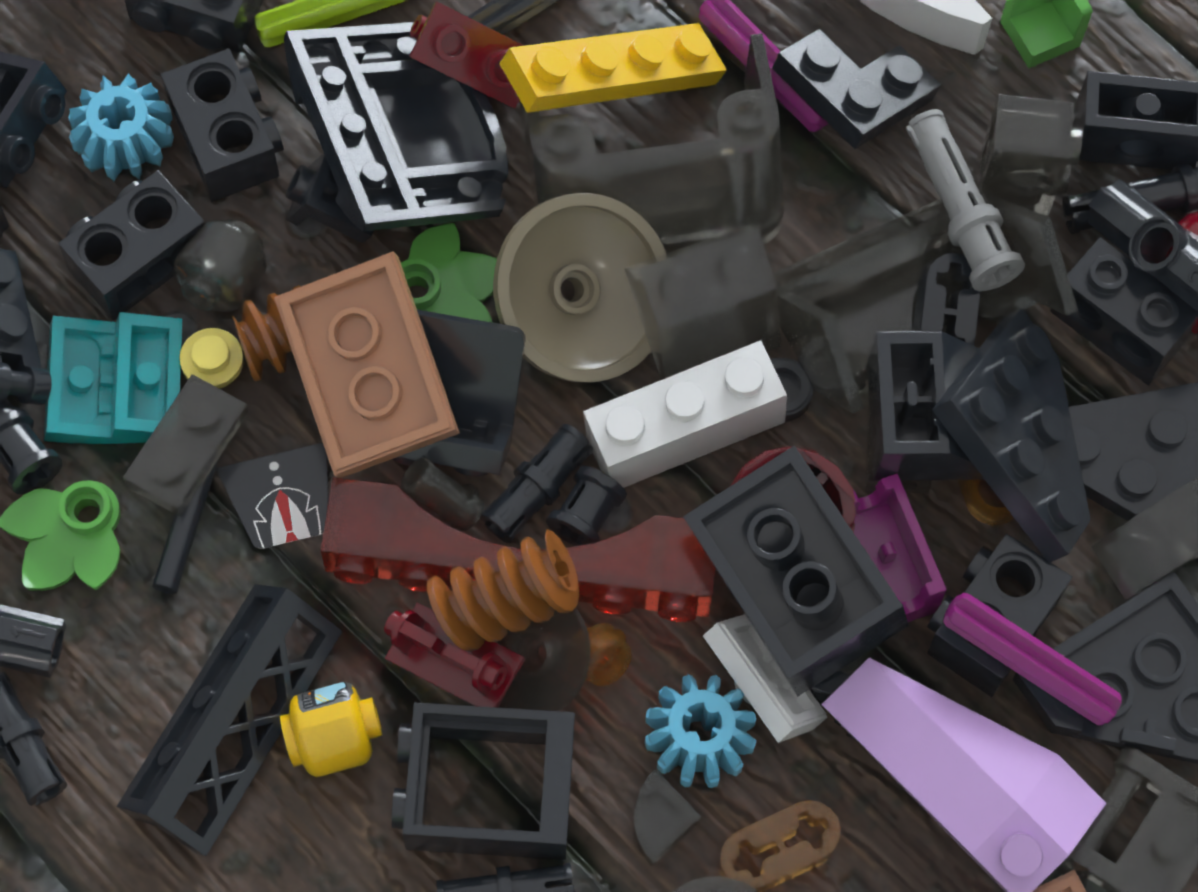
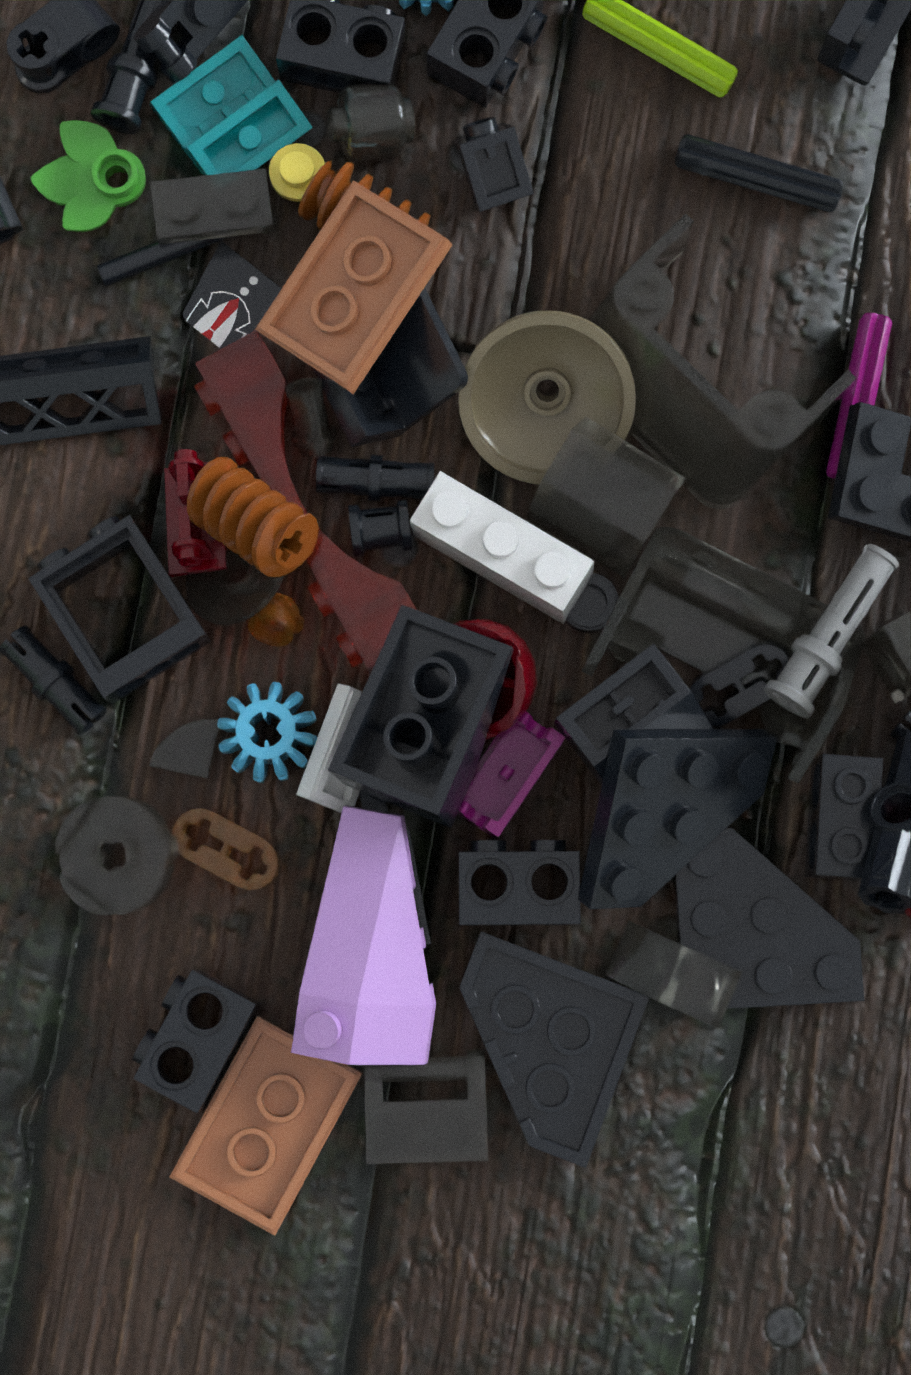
camera: 55 degrees right, 15 degrees up
(330, 729) = (77, 470): yellow head -> none
(395, 131) = (577, 164): black slope -> none
(454, 278) = (493, 295): bright green plate -> none
(464, 51) = (679, 170): dark red hinge -> none
(612, 67) = (747, 285): yellow plate -> none
(1032, 659) = (486, 937): magenta axle -> none

